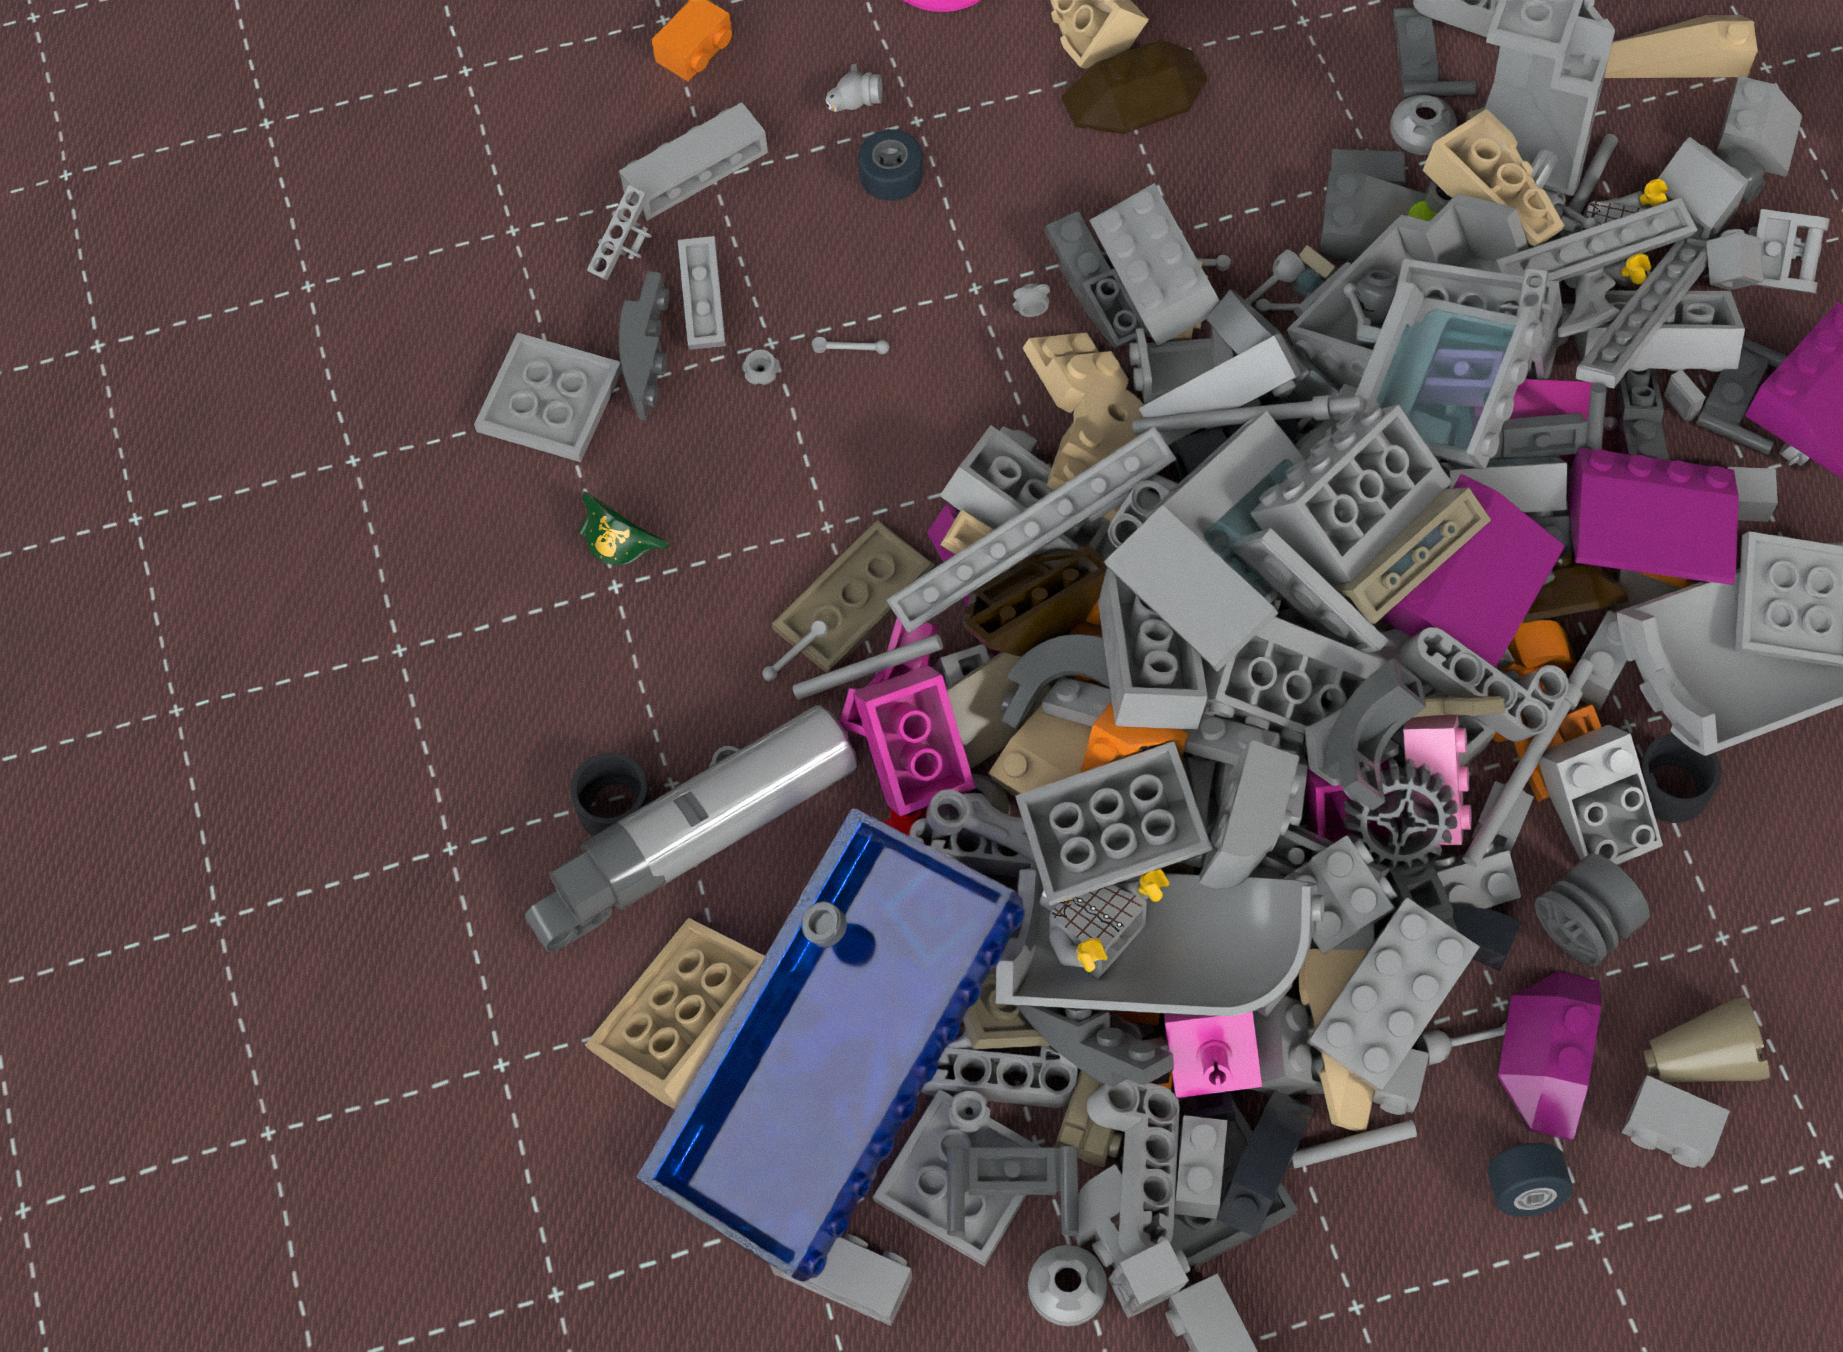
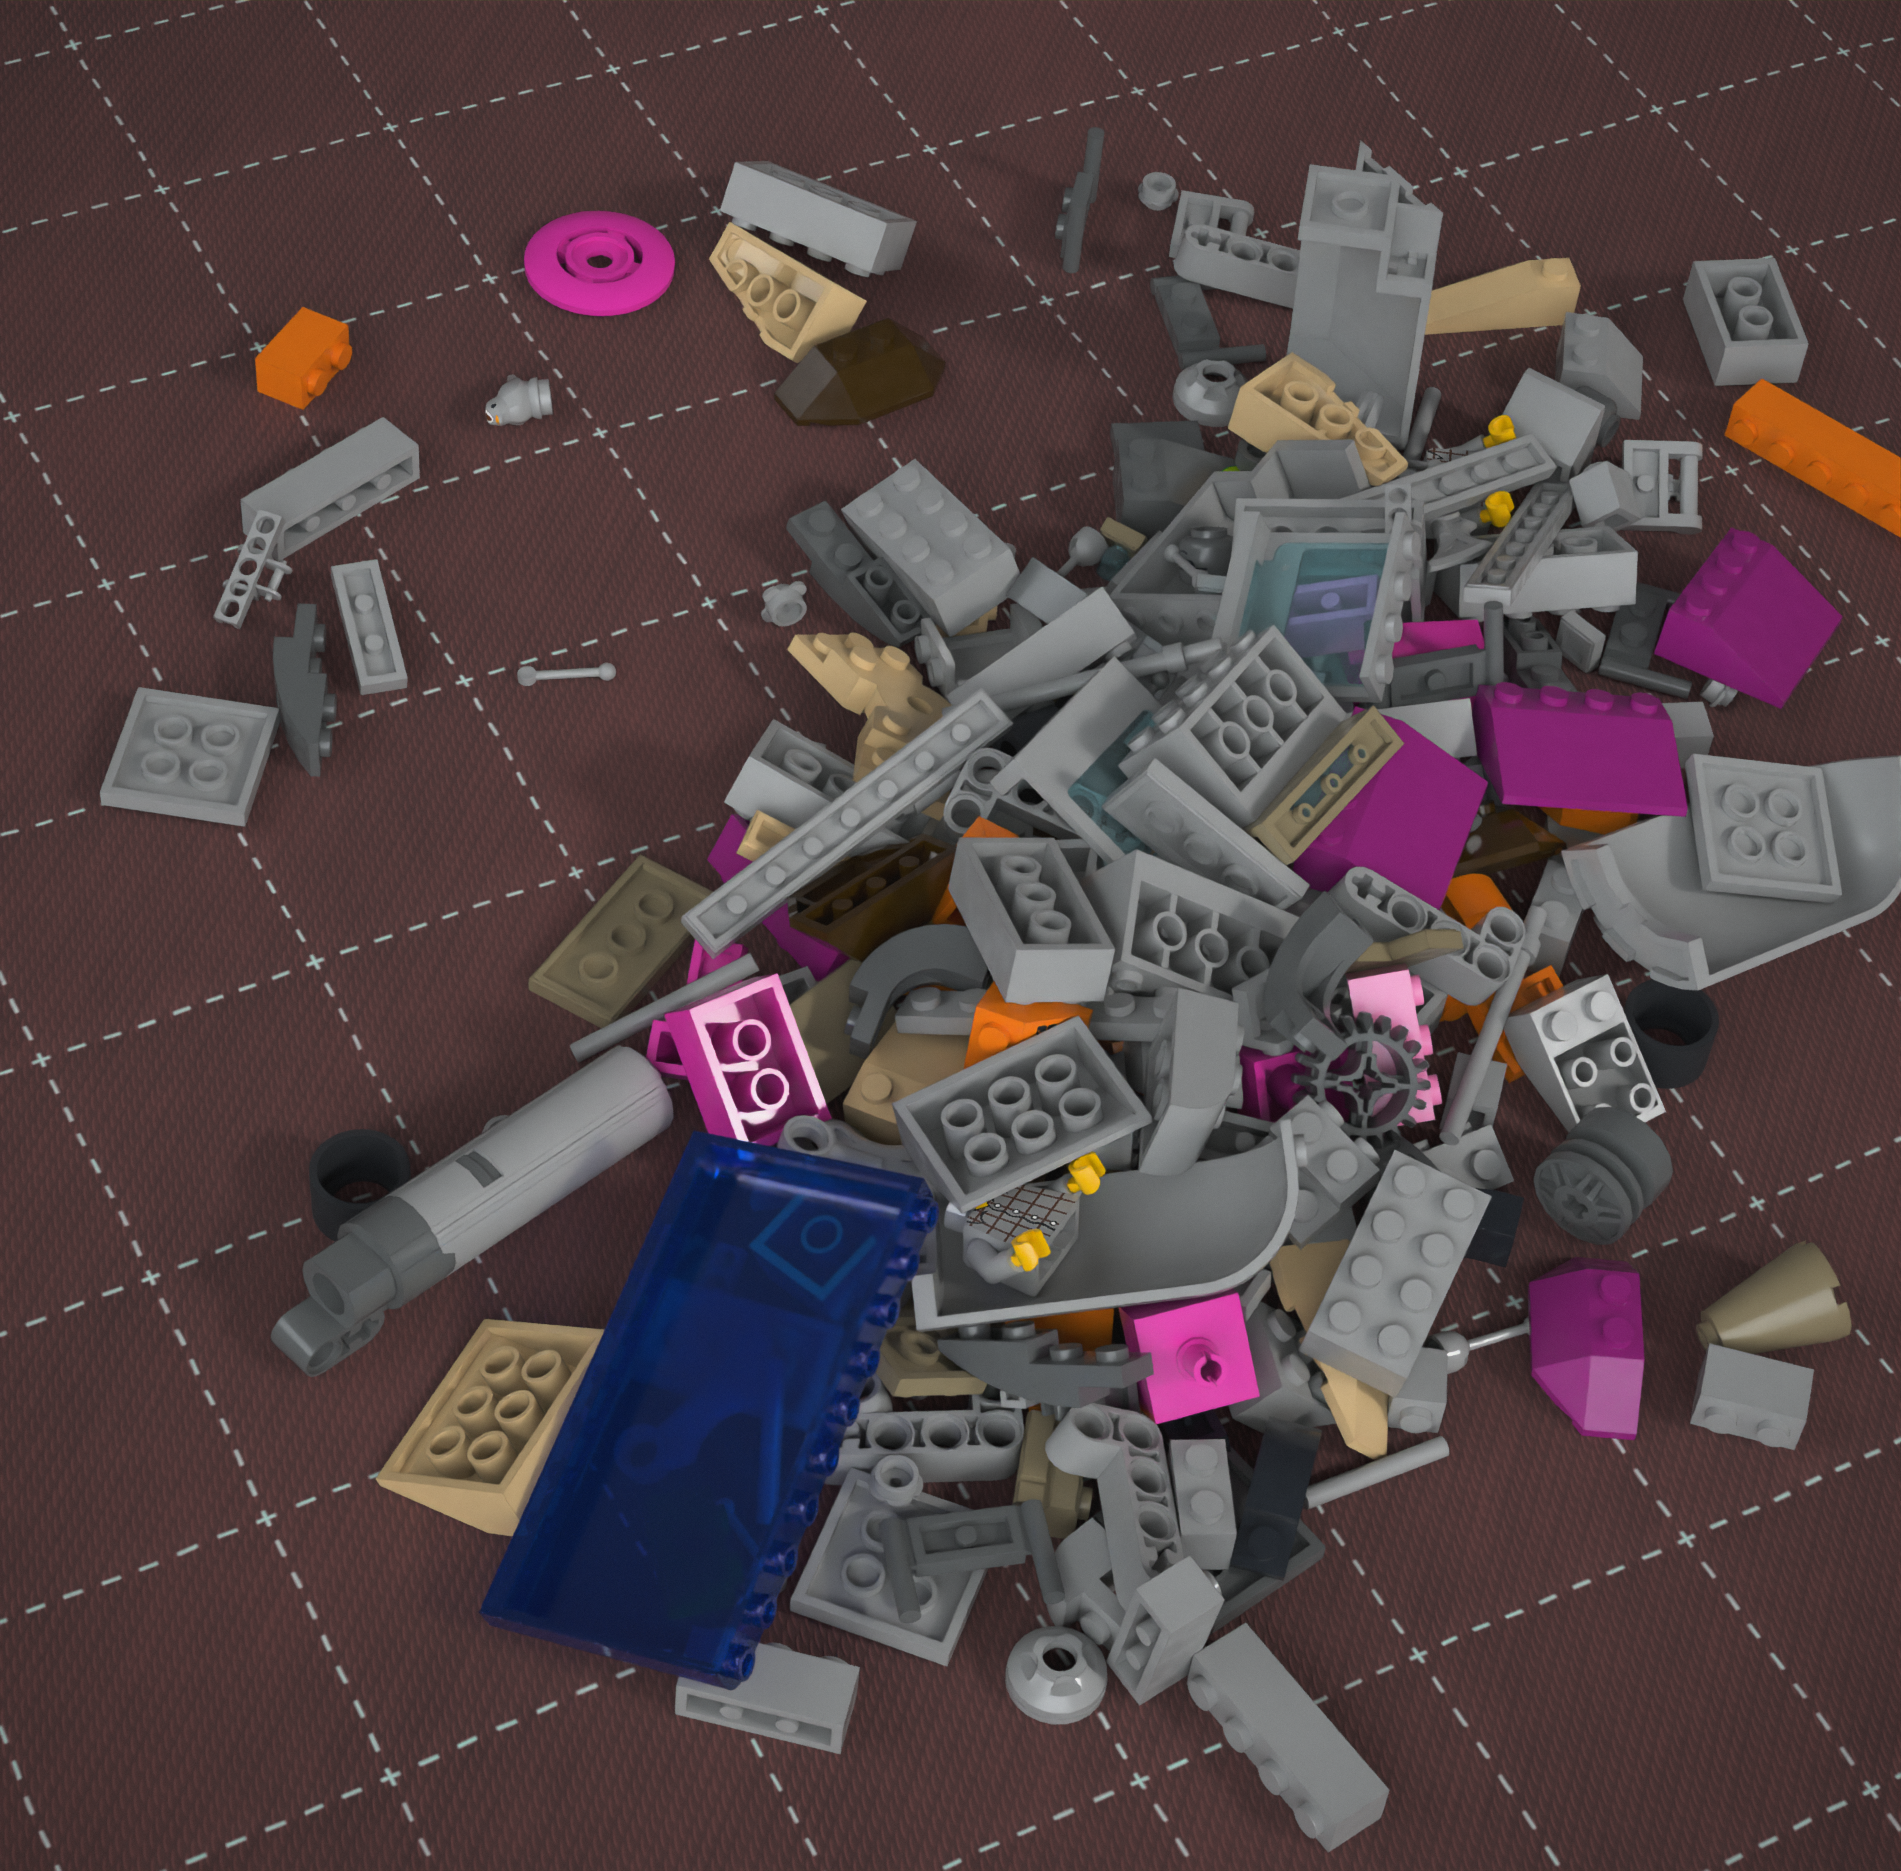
camera: 20 degrees left, 15 degrees down
(614, 537) = (310, 900): dark green hat -> none
(760, 359) = (458, 703): light grey plate -> none
(818, 629) = (592, 976): light grey hinge -> none
(824, 924) = (682, 1266): tile -> none
(890, 164) = (580, 475): black wheel -> none
(1190, 588) = (1068, 839): light grey tile -> none
(1529, 1179) = (1597, 1476): black wheel -> none

